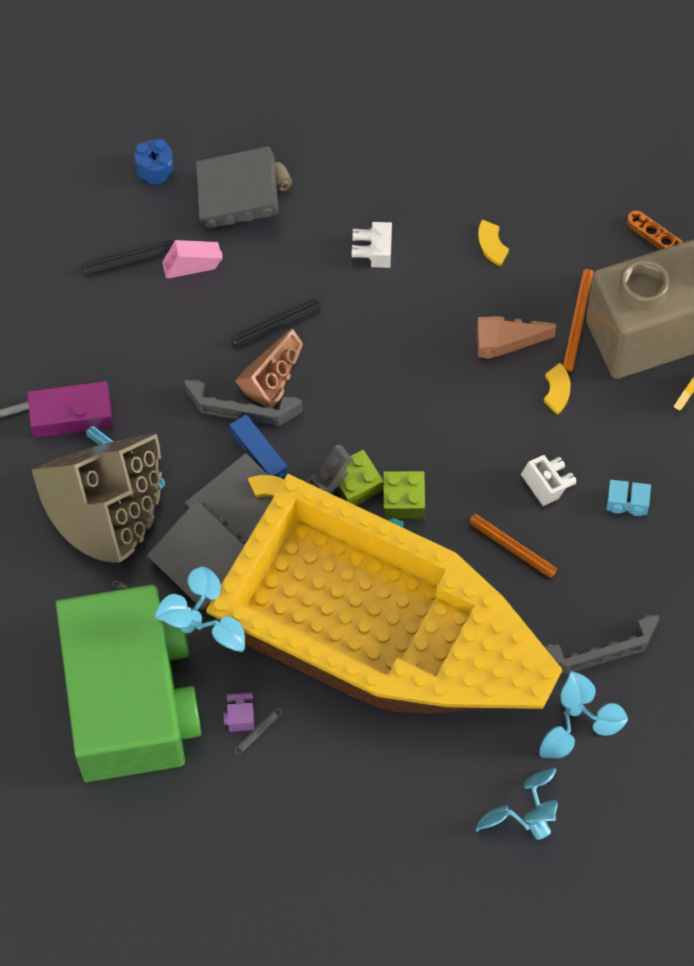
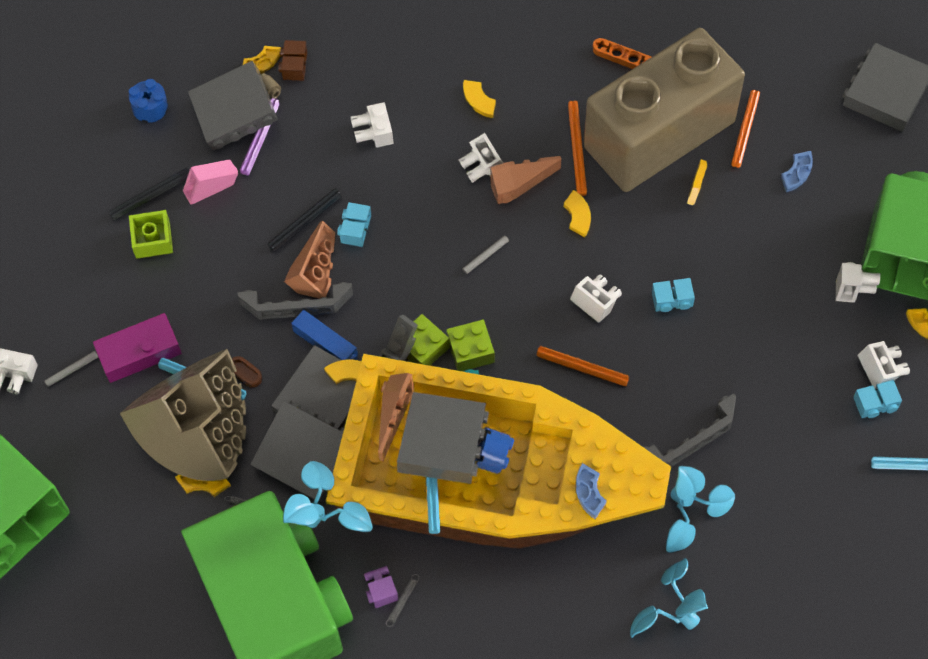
camera: 15 degrees left, 0 degrees up
(105, 568) = (213, 487): none -> yellow tile
(116, 298) = (150, 234): none -> lime brick
(171, 462) = (246, 372): none -> reddish brown tile
(250, 233) = (256, 144): none -> axle
(285, 147) = (265, 59): none -> yellow tile
(303, 529) = (395, 400): none -> nougat wedge
(314, 152) = (293, 60): none -> reddish brown piece
(314, 624) = (433, 505): none -> medium azure axle
(326, 336) = (355, 220): none -> medium azure piece
(339, 578) = (442, 438): none -> dark grey brick
(386, 604) = (494, 451): none -> blue brick
(448, 406) = (487, 253): none -> light grey bar
(469, 671) = (587, 491): none -> medium blue tile
(479, 301) = (483, 152): none -> white brick

